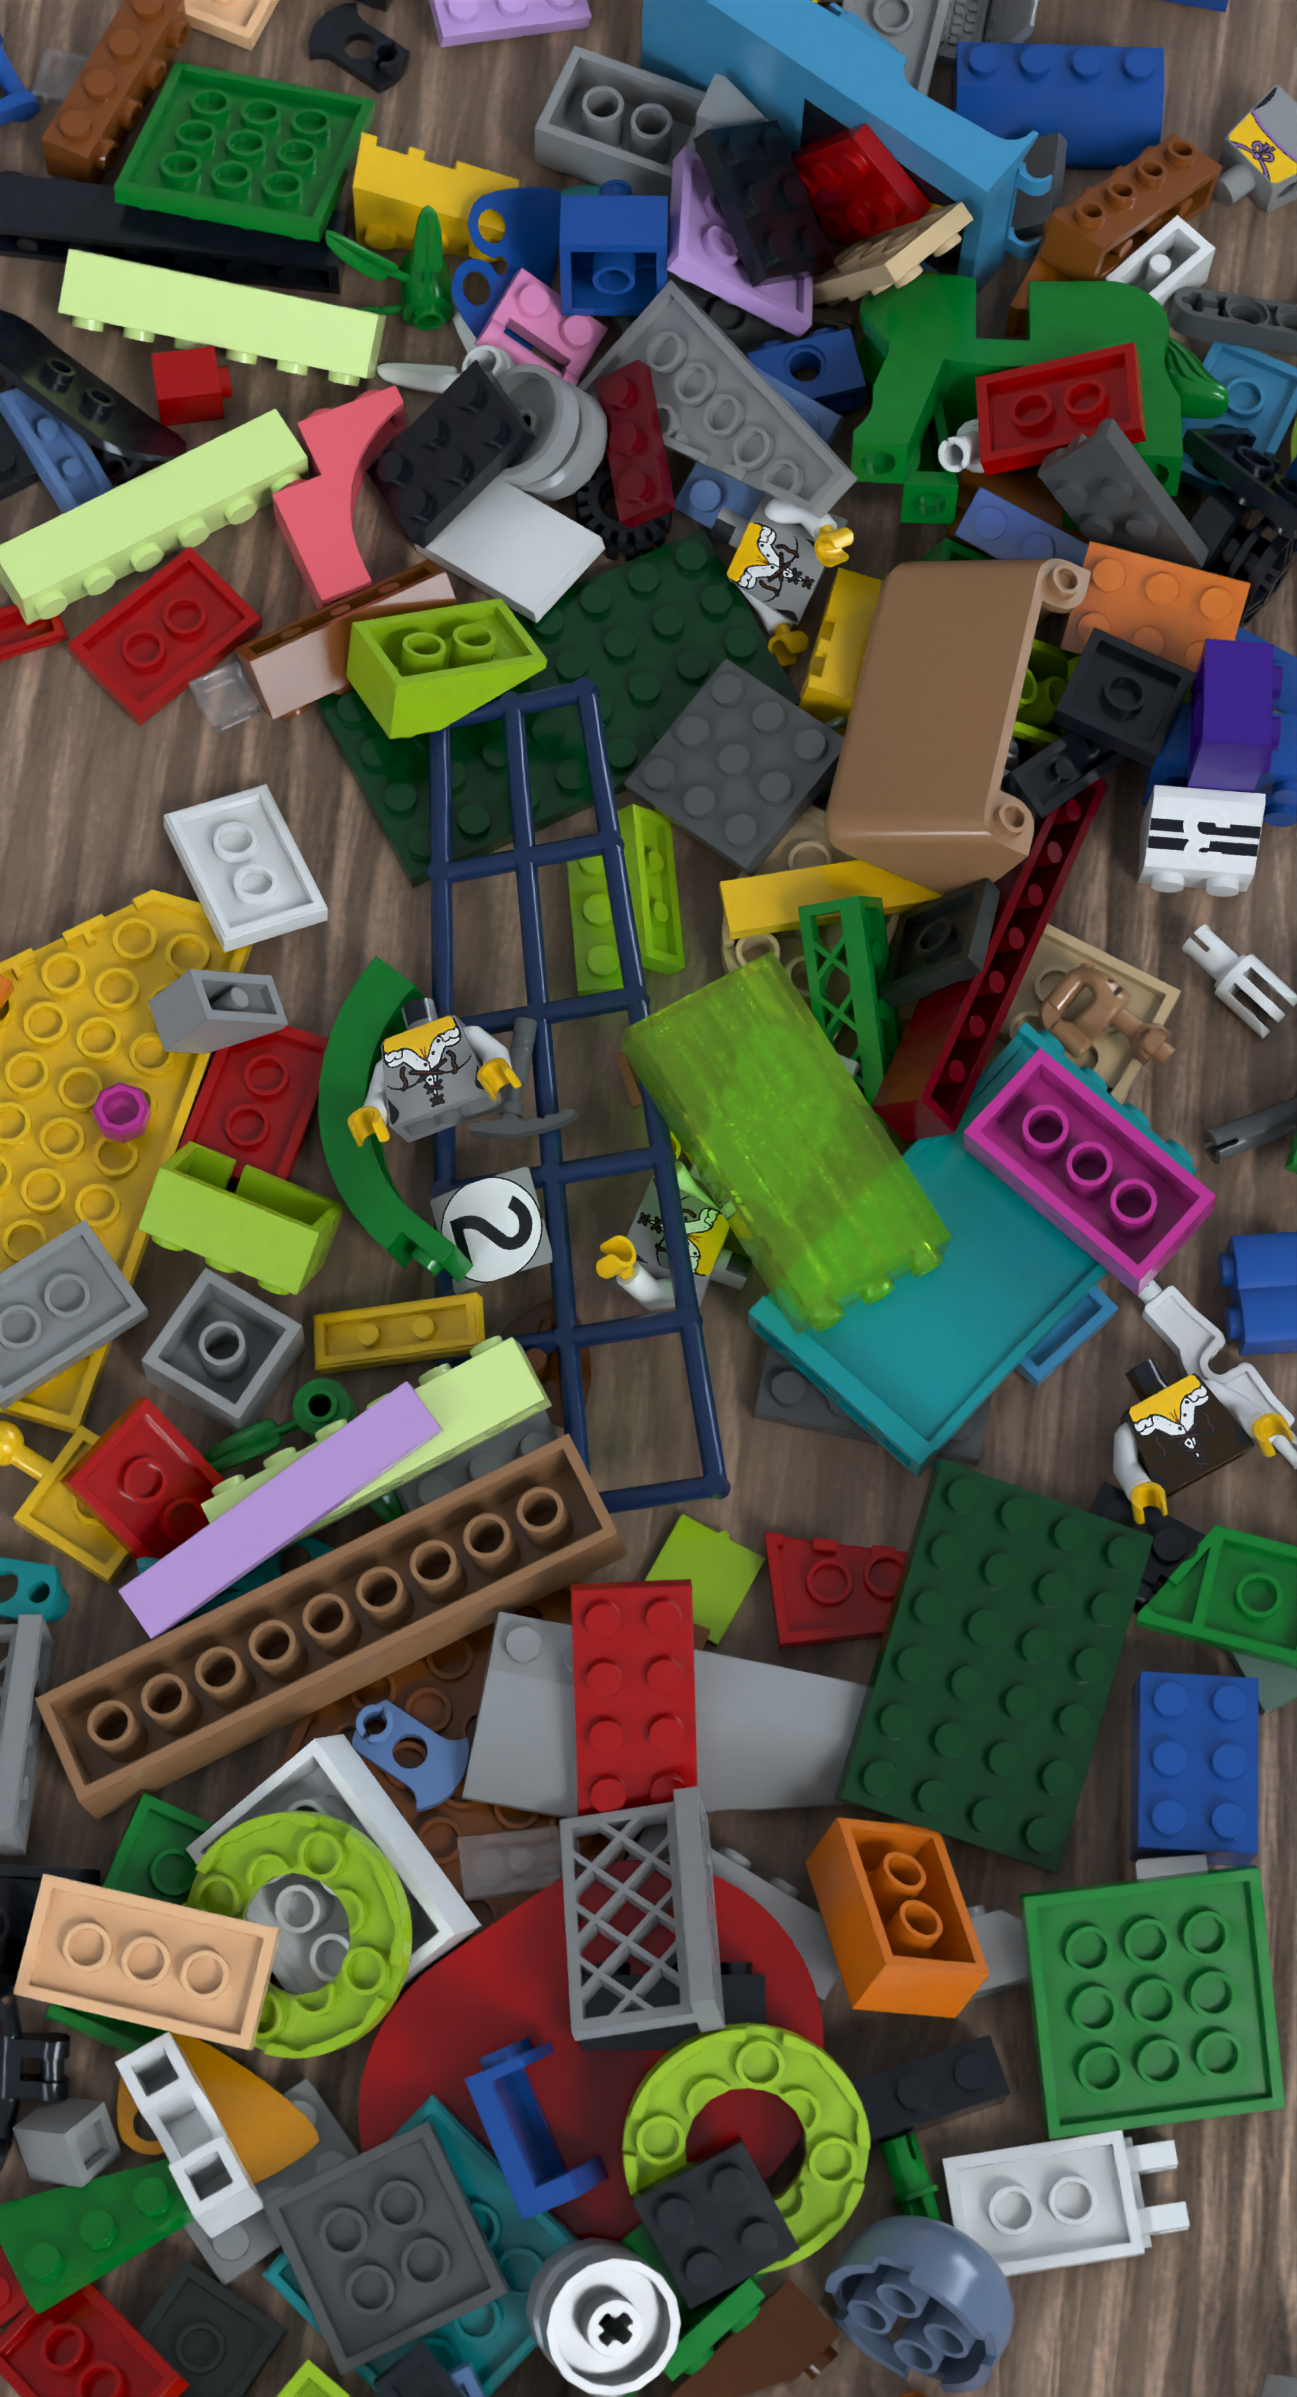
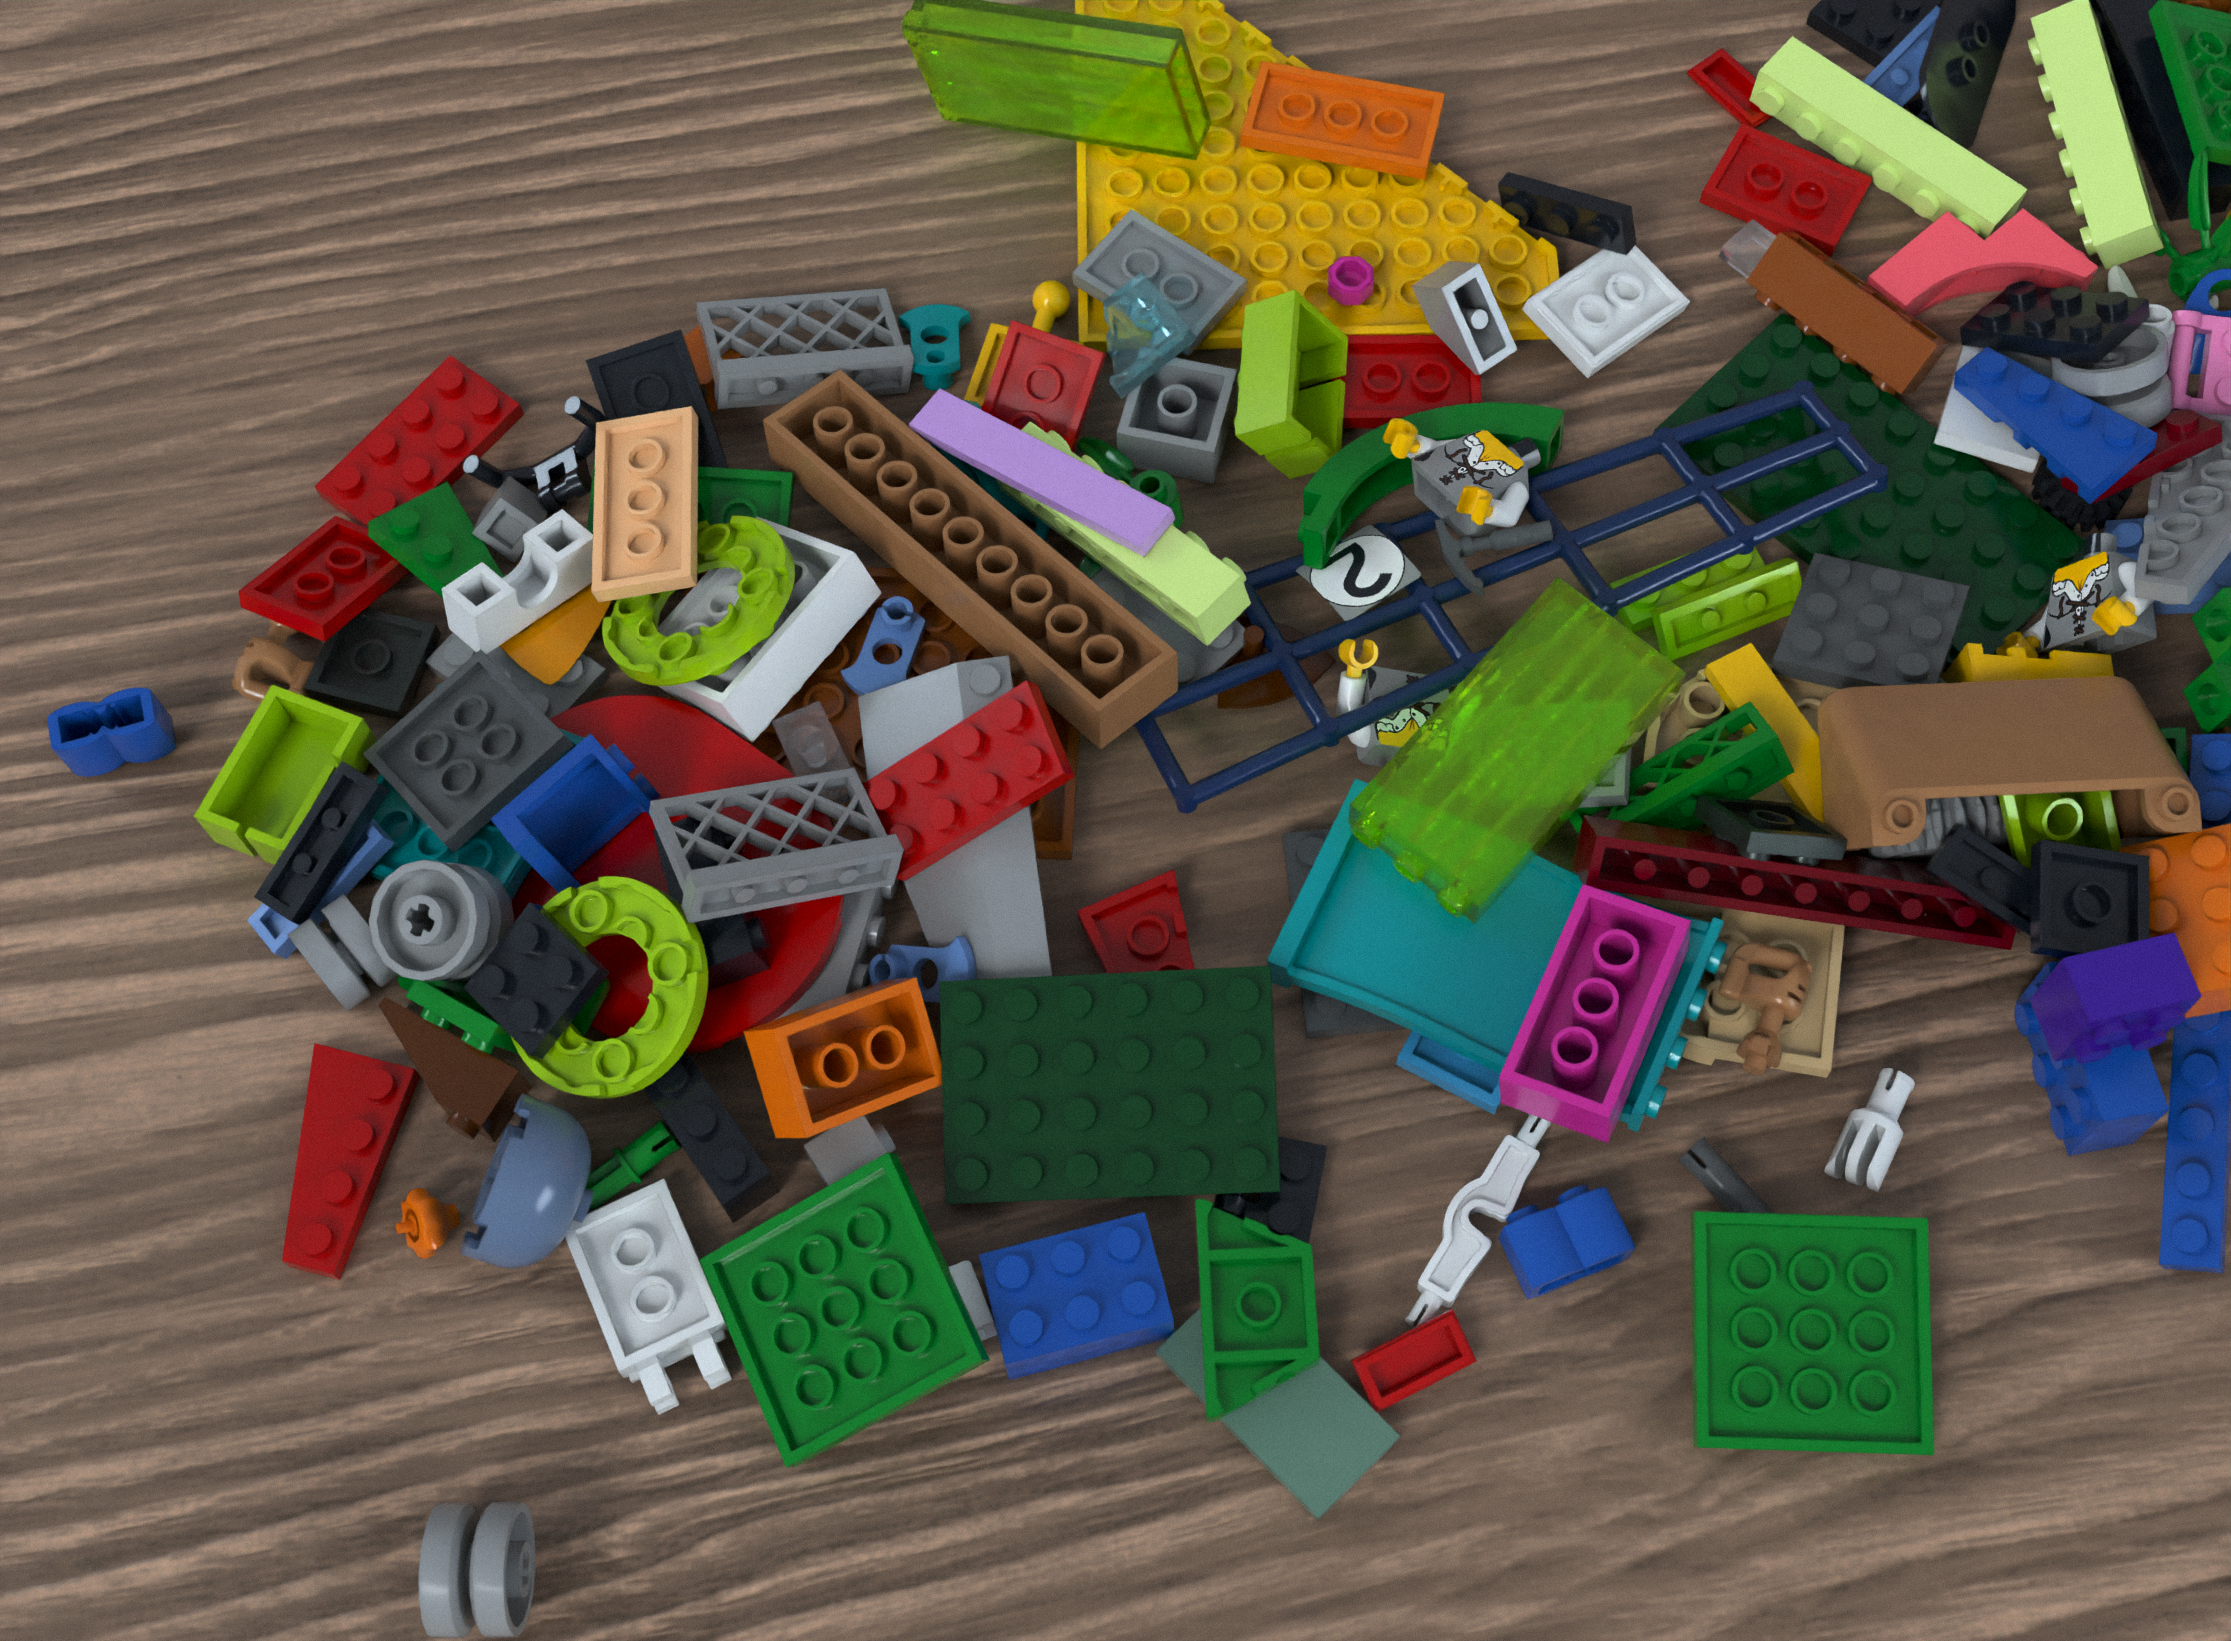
camera: 80 degrees right, 5 degrees down
(123, 861) = (1568, 213): none -> black plate
(127, 1349) = (1141, 333): none -> clear light blue wing
(190, 386) = (2018, 133): red brick -> none
(398, 1333) = (1246, 539): yellow tile -> none
(438, 664) = (1849, 367): lime slope -> none
(592, 495) = (2066, 428): none -> blue wing
(717, 1569) = (1119, 839): lime piece -> none
(813, 1783) = (906, 961): none -> medium blue piece
(1183, 1435) = (1388, 1194): torso -> none
(1200, 839) = (1995, 1047): white slope -> none

